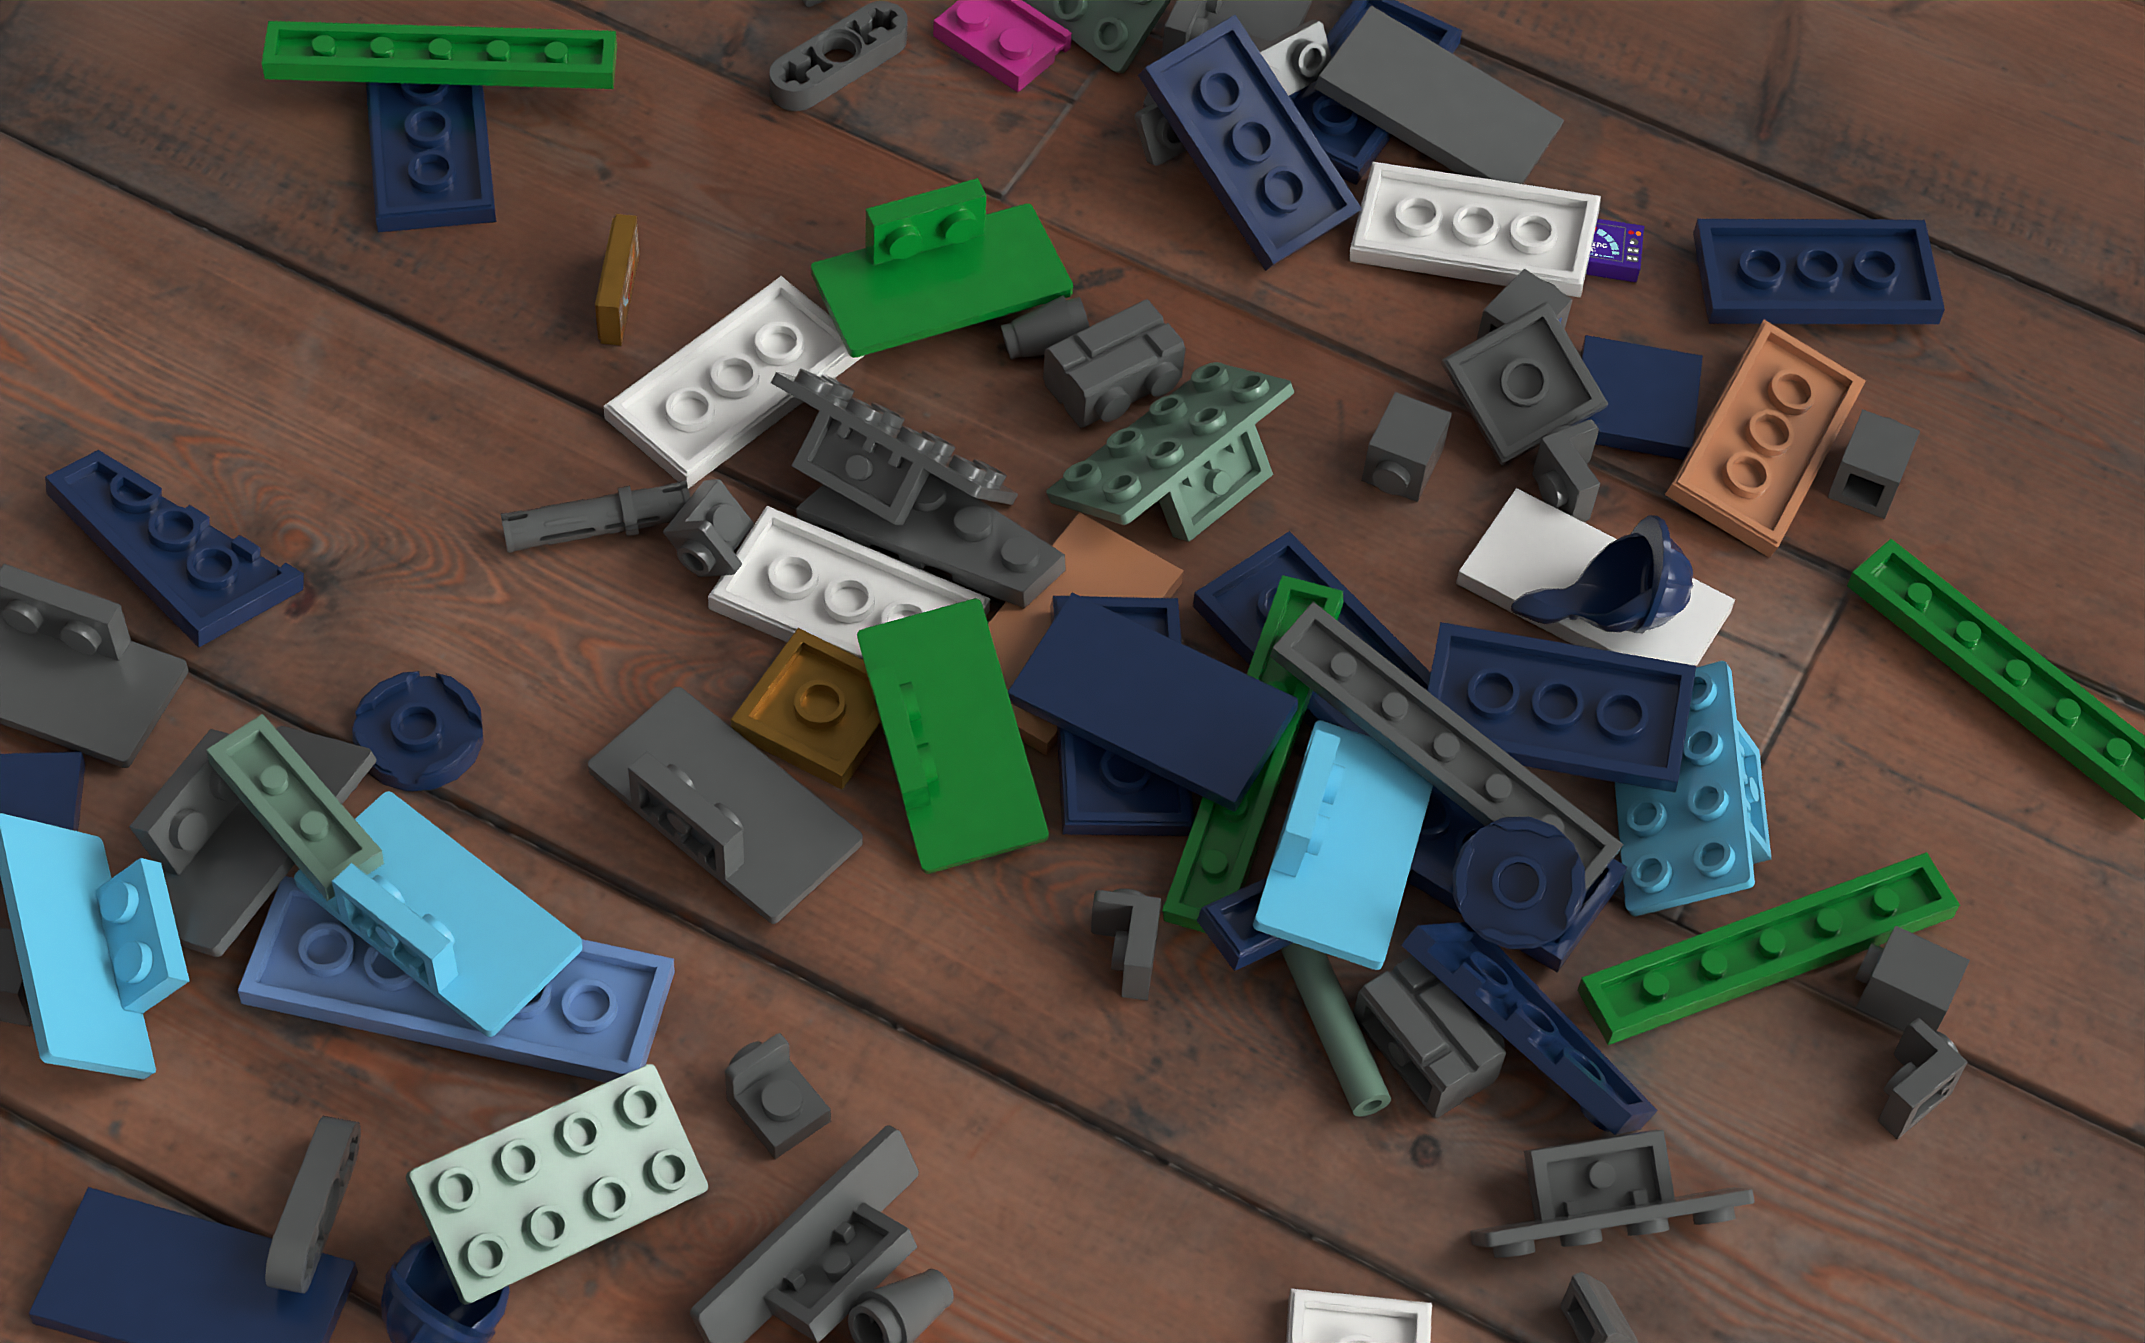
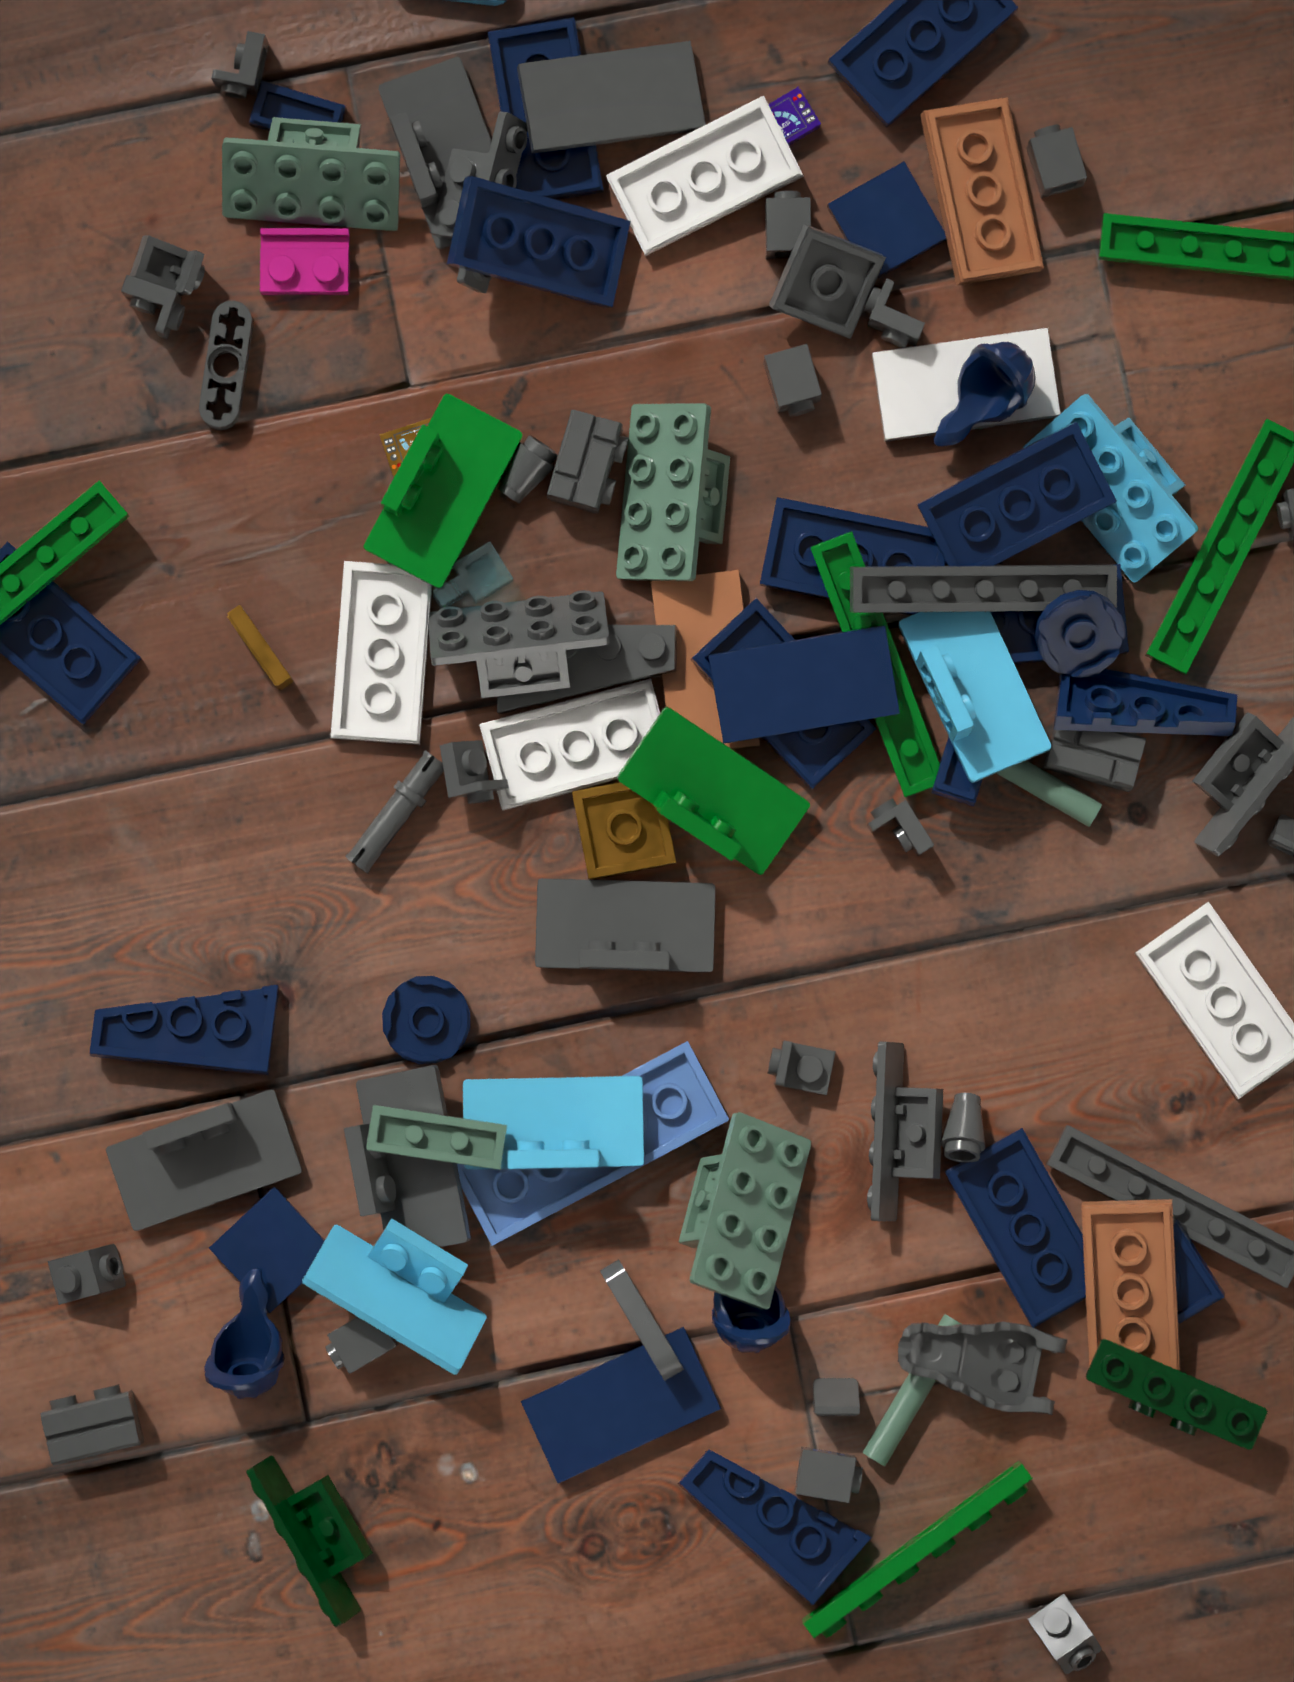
camera: 35 degrees left, 30 degrees up
(902, 380) = (478, 574): none -> clear light blue plate

